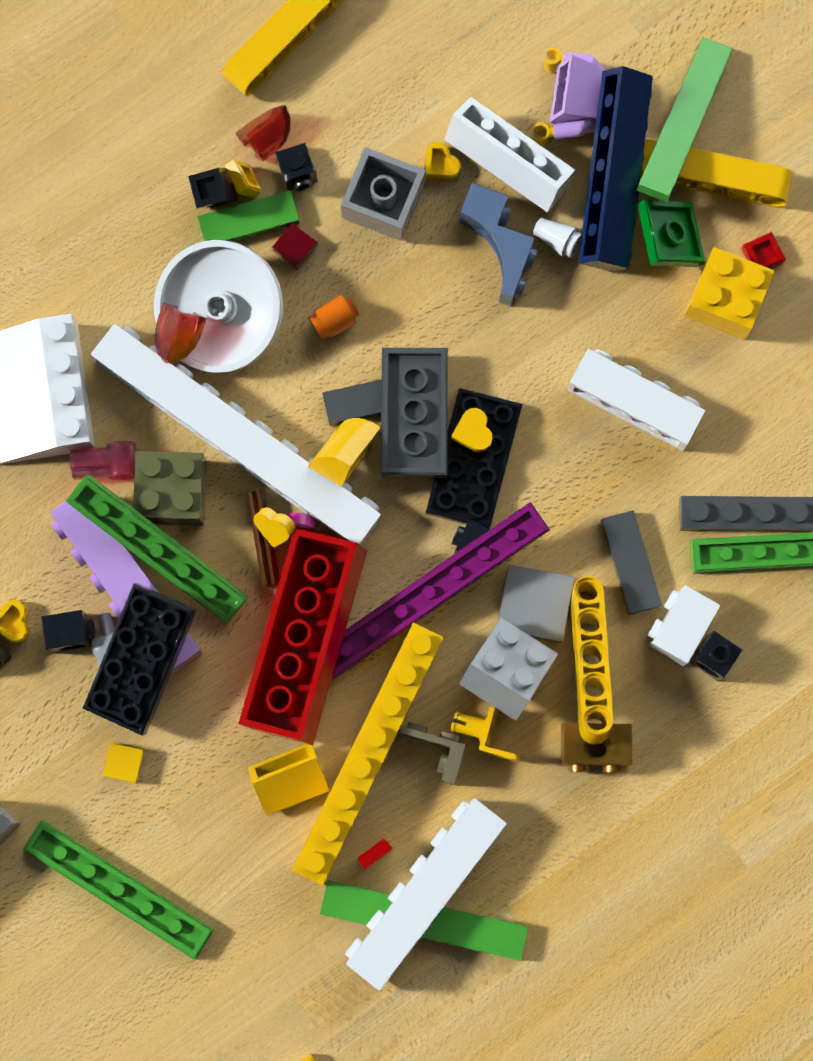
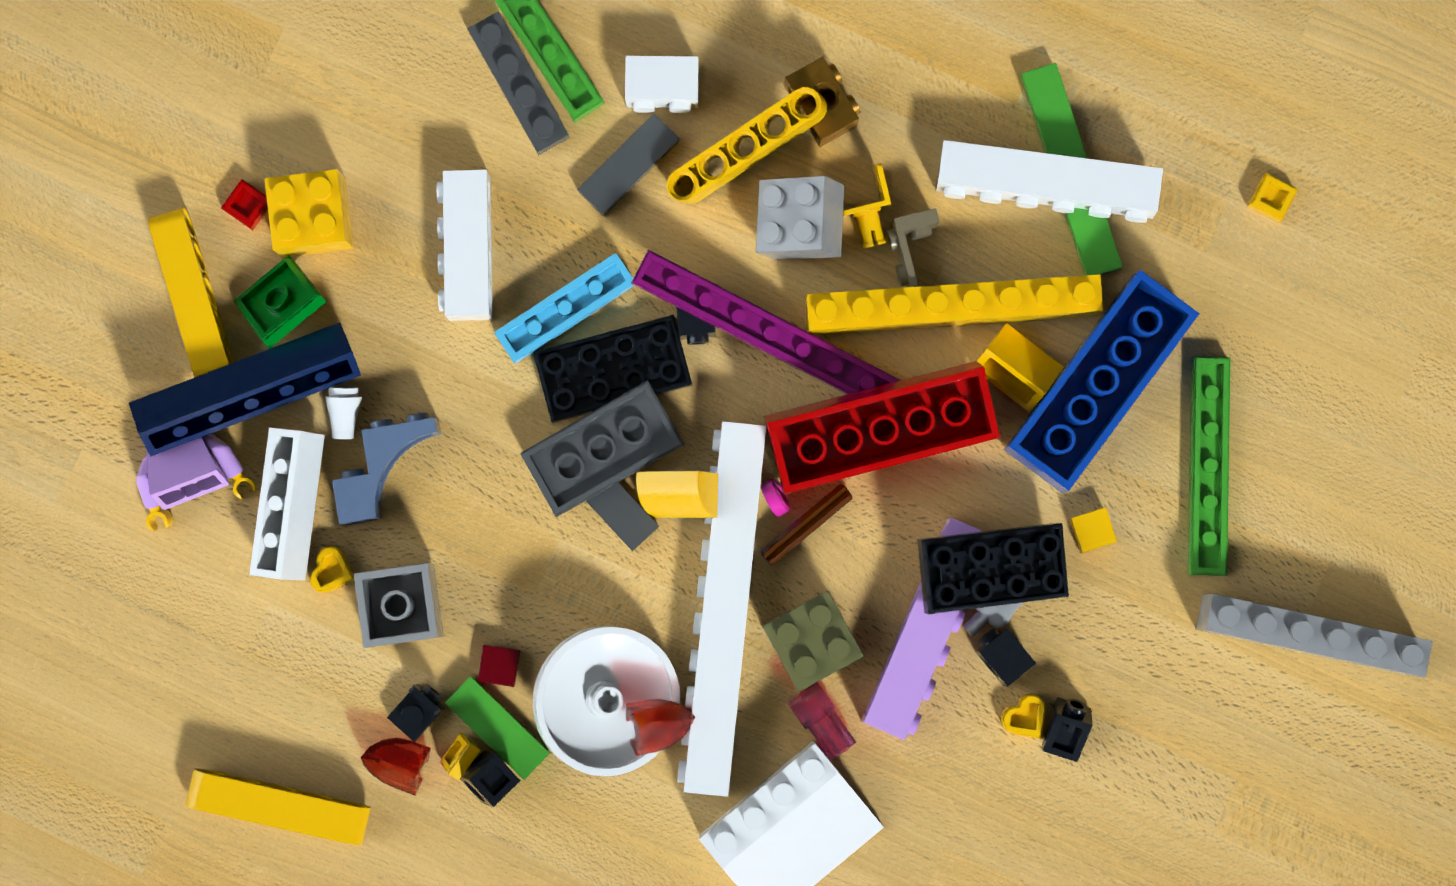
camera: 120 degrees left, 5 degrees up
(156, 548) = (879, 616): bright green tile -> none
(235, 836) = (1101, 381): none -> blue brick
(274, 526) = (793, 516): yellow tile -> none
(334, 317) = (551, 582): orange brick -> none
(374, 853) = (1039, 247): red tile -> none
(473, 431) = (589, 381): yellow tile -> none
(536, 602) = (718, 232): light grey tile -> none
(542, 447) = (565, 308): none -> medium azure plate
(684, 120) = (153, 350): bright green tile -> none
(716, 656) = (674, 34): black brick -> none

